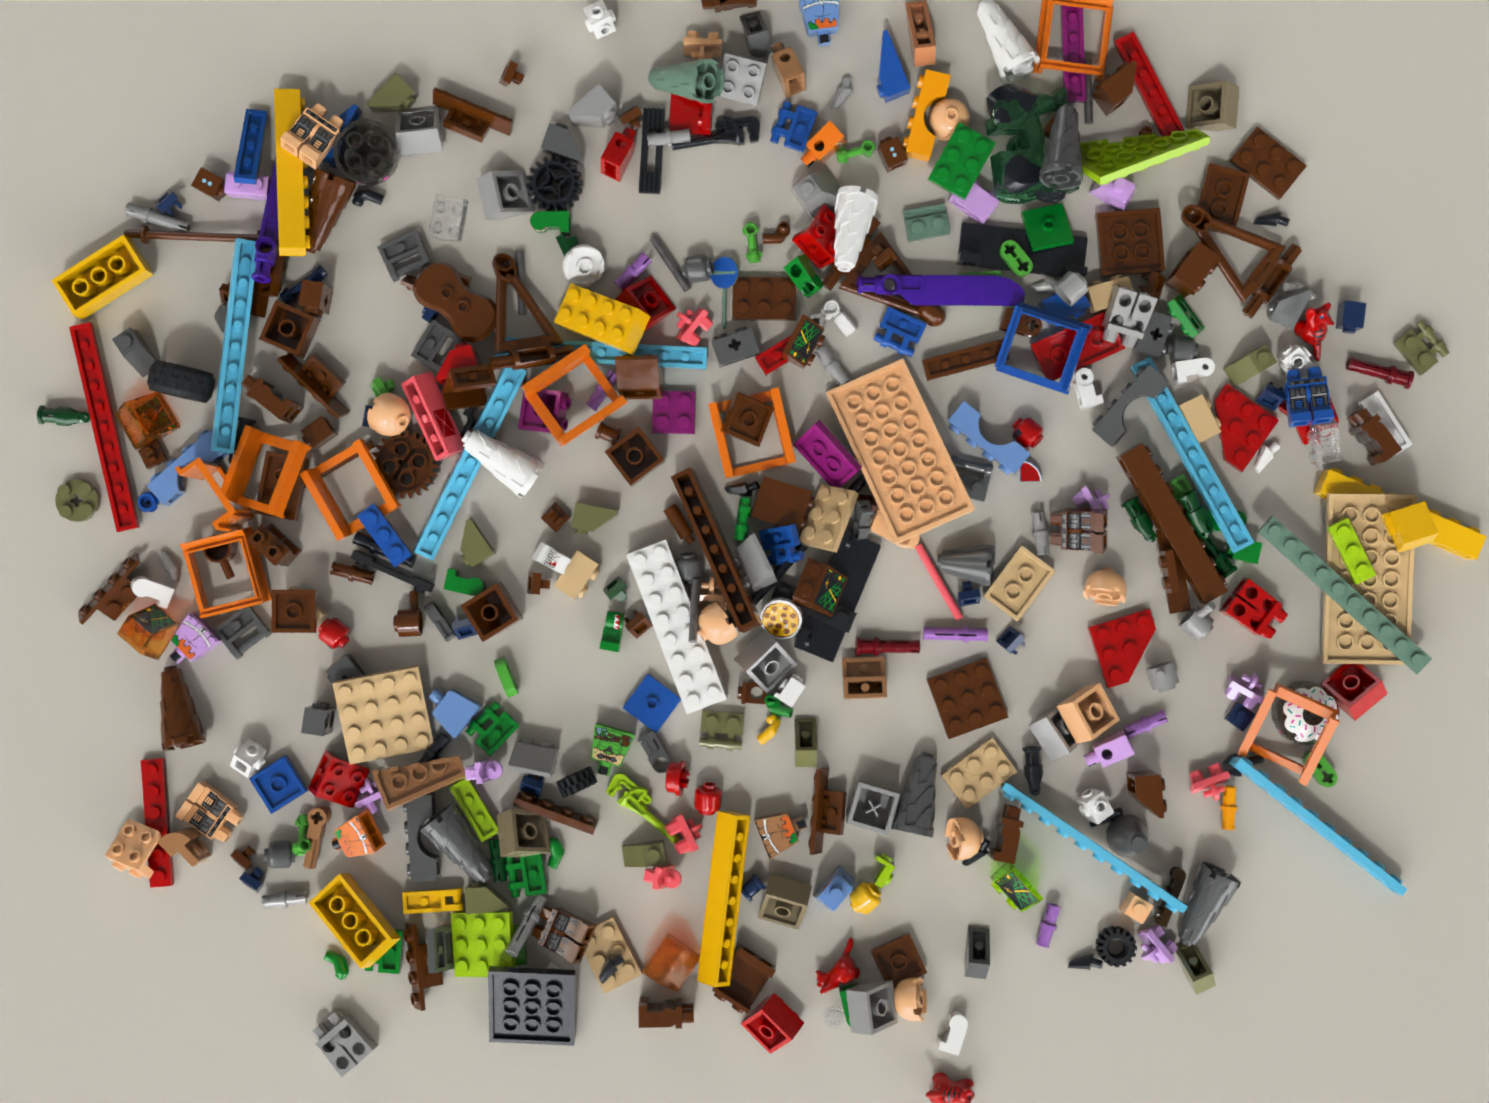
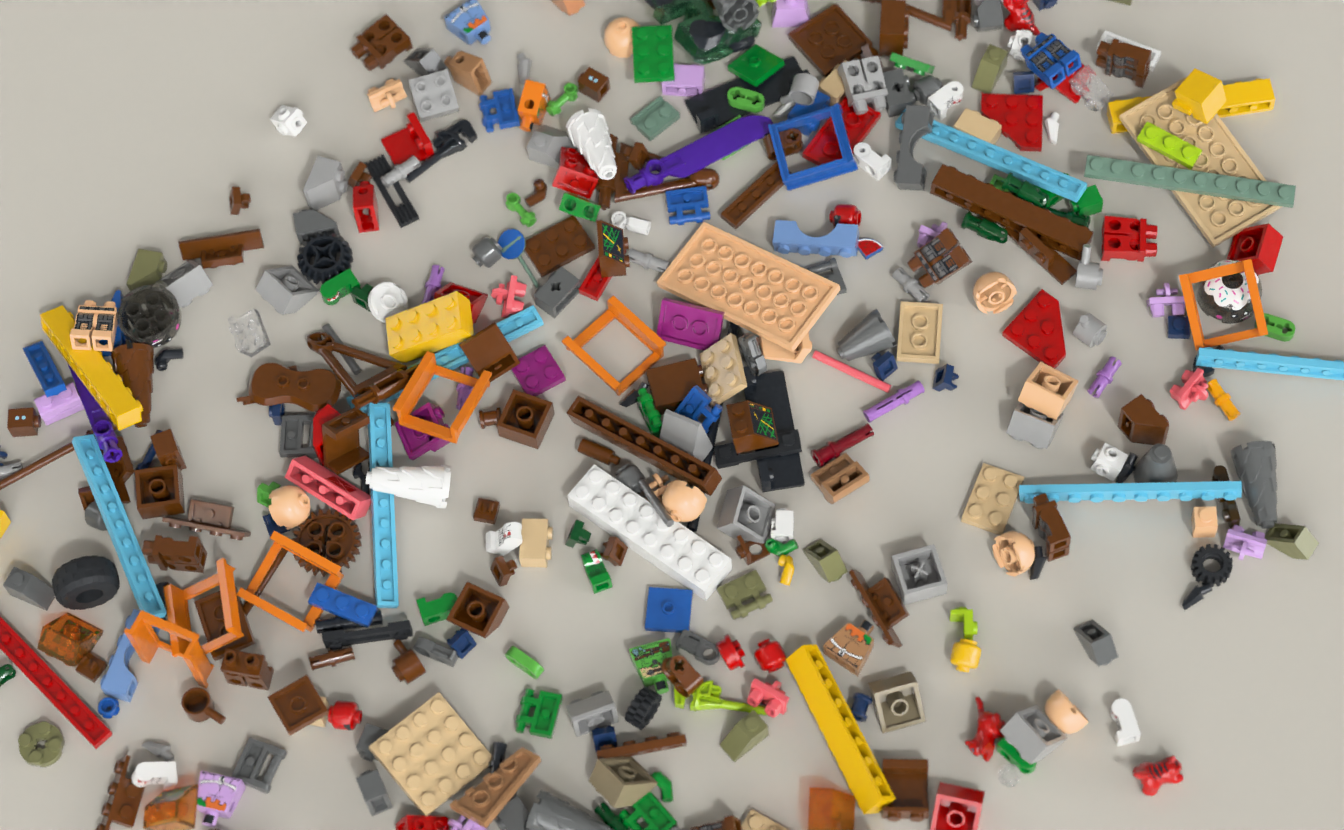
camera: 30 degrees left, 25 degrees down
(254, 566) = (180, 702): orange piece -> none
(318, 433) = (236, 557): reddish brown brick -> none
(401, 249) = (221, 380): dark grey plate -> none
(454, 710) = (494, 717): medium blue torso -> none
(474, 809) = (566, 790): lime plate -> none
(475, 545) = (430, 571): olive slope -> none
(484, 771) = (551, 749): lavender hips -> none
(590, 517) = (518, 489): olive slope -> none
(622, 775) = (681, 675): none -> reddish brown piece
(663, 876) = (773, 741): coral hips -> none
(670, 263) = (461, 264): flat silver bar -> none
(692, 80) = (393, 112): sand green cone -> none
(747, 419) = (603, 336): reddish brown plate -> none
(781, 618) = (737, 470): tile -> none
(835, 889) = (933, 661): medium blue torso -> none
(891, 76) = (556, 32): blue slope -> none
(898, 959) = (1030, 688): reddish brown plate -> none
(917, 805) = (956, 551): dark grey cone -> none
(933, 90) = (609, 61): light orange arch -> none
(967, 698) = (940, 446): reddish brown plate -> none
(1015, 887) = (1089, 564): slope -> none
(1033, 770) = (1035, 465): black piece -> none
(1048, 925) = (1140, 583): medium lavender pin -> none
(1117, 744) = (1089, 409): lavender torso -> none
(1388, 374) = (1105, 16): dark red pin -> none

